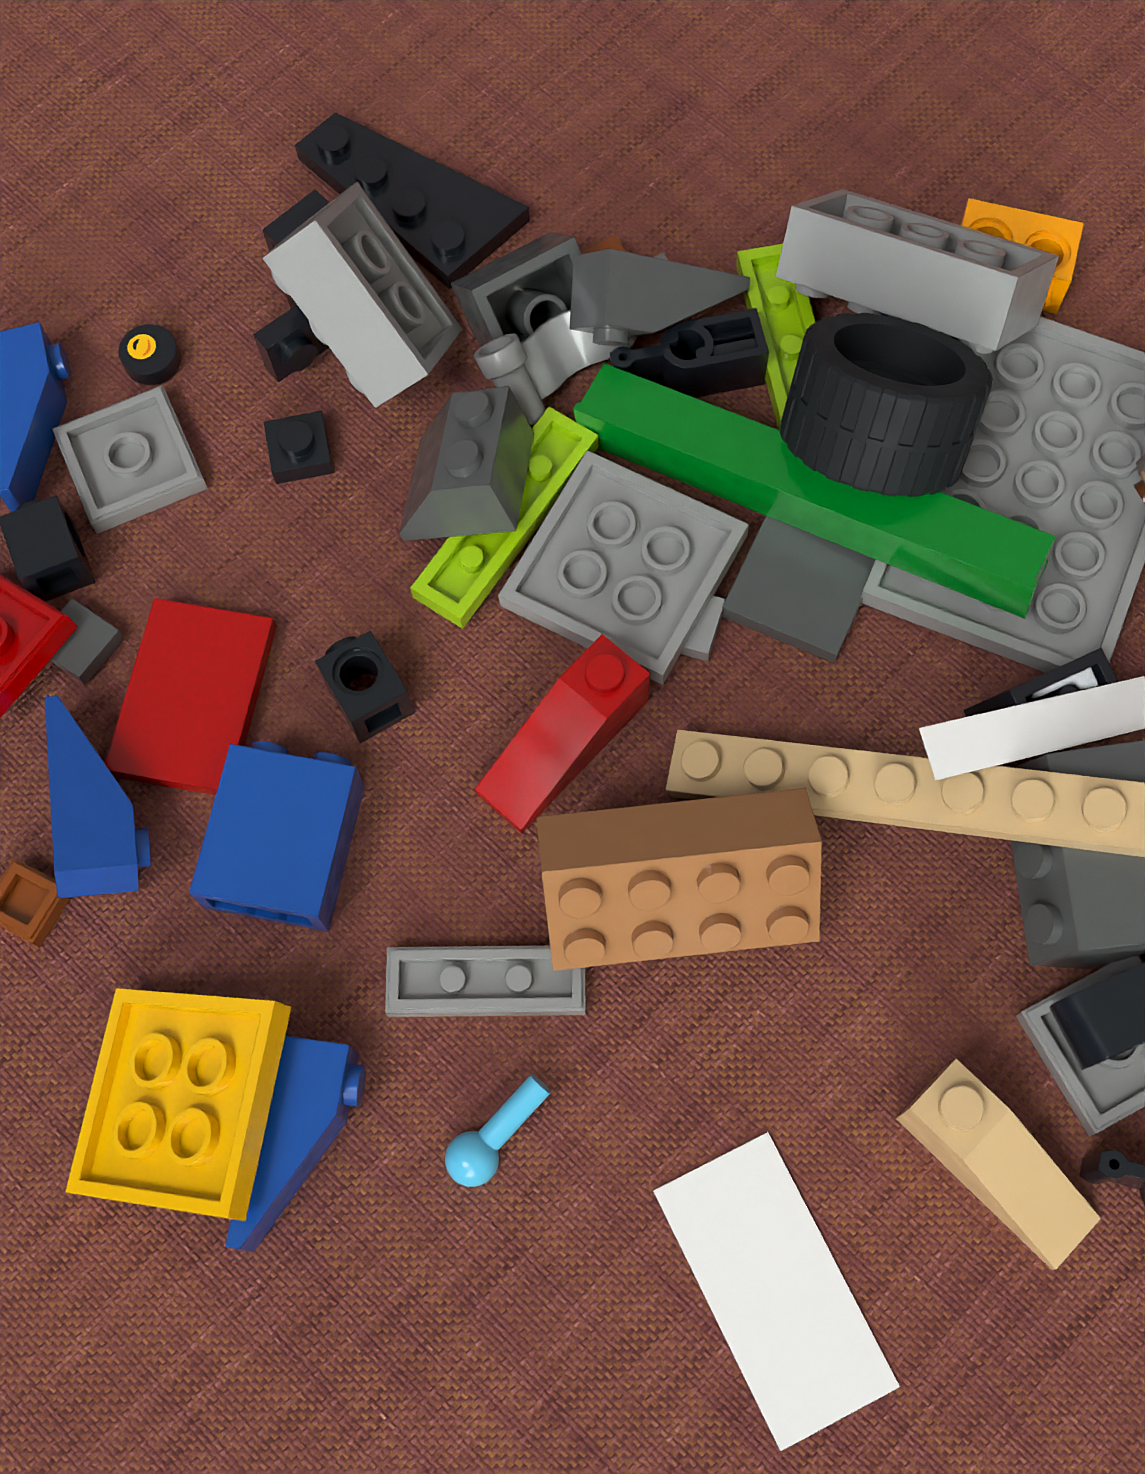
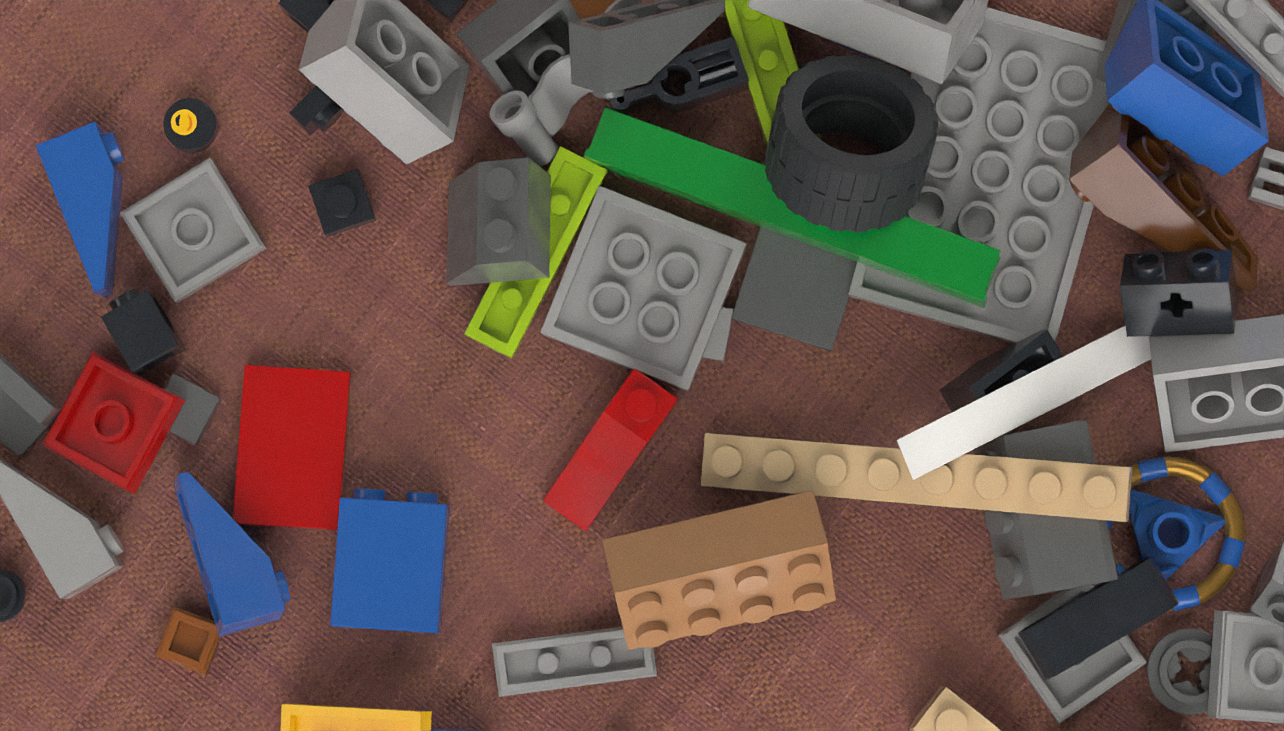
camera: 10 degrees left, 15 degrees up
(371, 709) = (454, 442): black brick -> none

